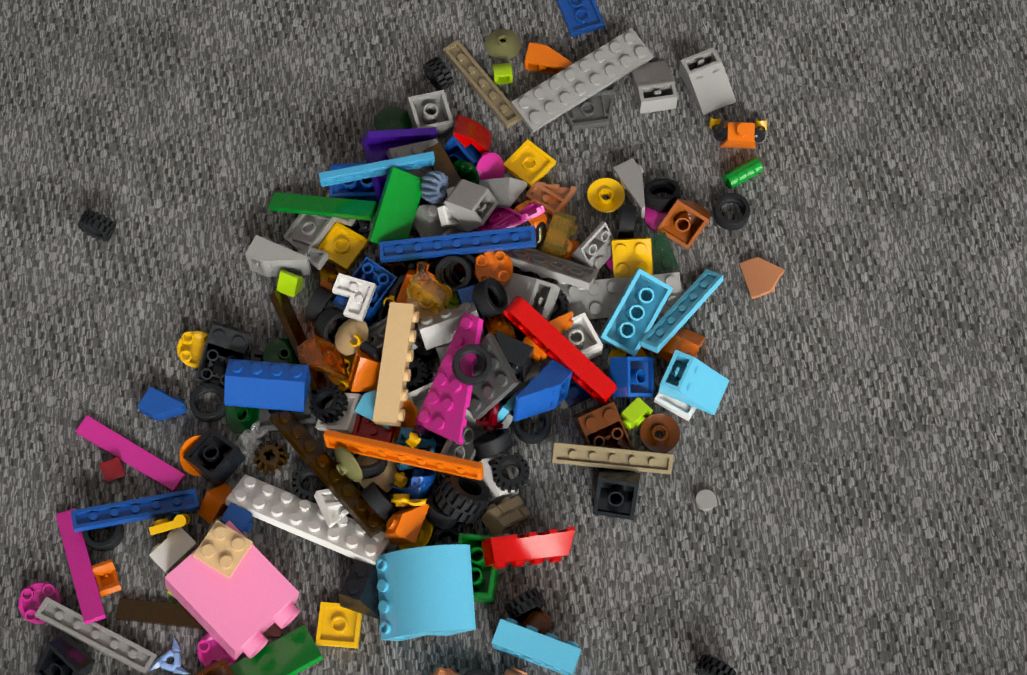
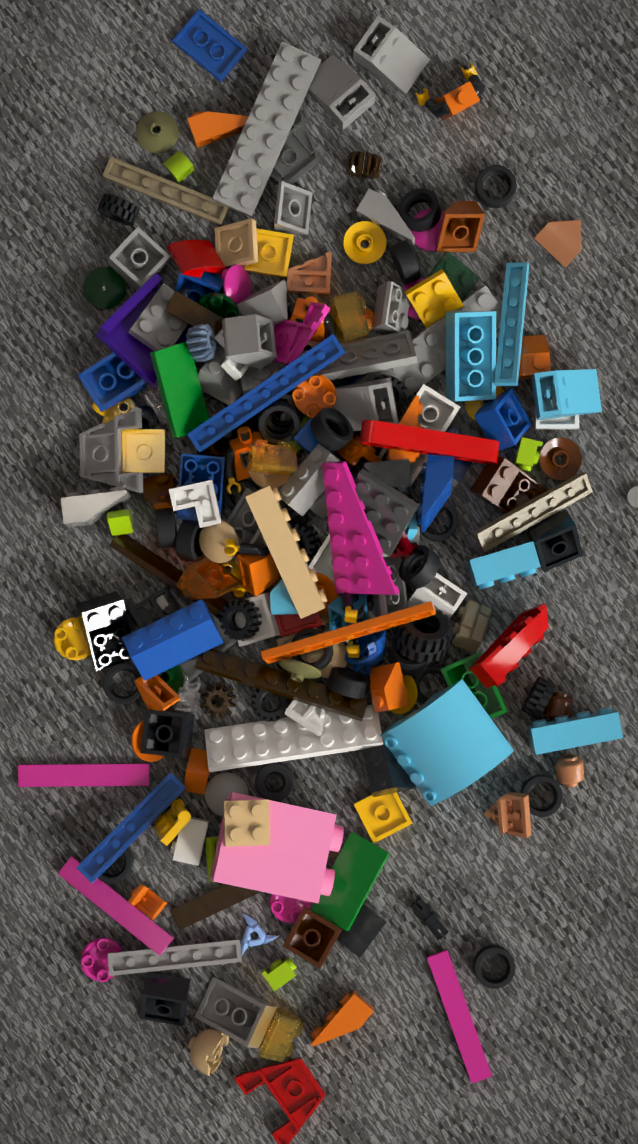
camera: 30 degrees left, 20 degrees up
(112, 469) = (79, 800): dark red tile -> none
(160, 406) = (80, 715): blue slope -> none
(227, 419) = (156, 693): none -> orange slope
(239, 517) = (231, 780): blue brick -> none
(273, 351) = (157, 606): dark green dish -> none
(273, 532) = (274, 795): none -> black tyre
(323, 206) = (100, 423): green tile -> none
(376, 169) = (135, 360): dark azure tile -> none
(403, 500) = (373, 672): yellow plate -> none
(483, 353) = (382, 510): black tyre -> none
(510, 142) = (237, 243): none -> tan plate
(510, 460) = (466, 579): black tyre -> none
(561, 483) = (503, 565): none -> medium azure brick
(566, 143) = (292, 209): none -> light grey slope
(639, 141) = (363, 165): none -> dark brown gear
(742, 172) = (482, 137): green axle -> none

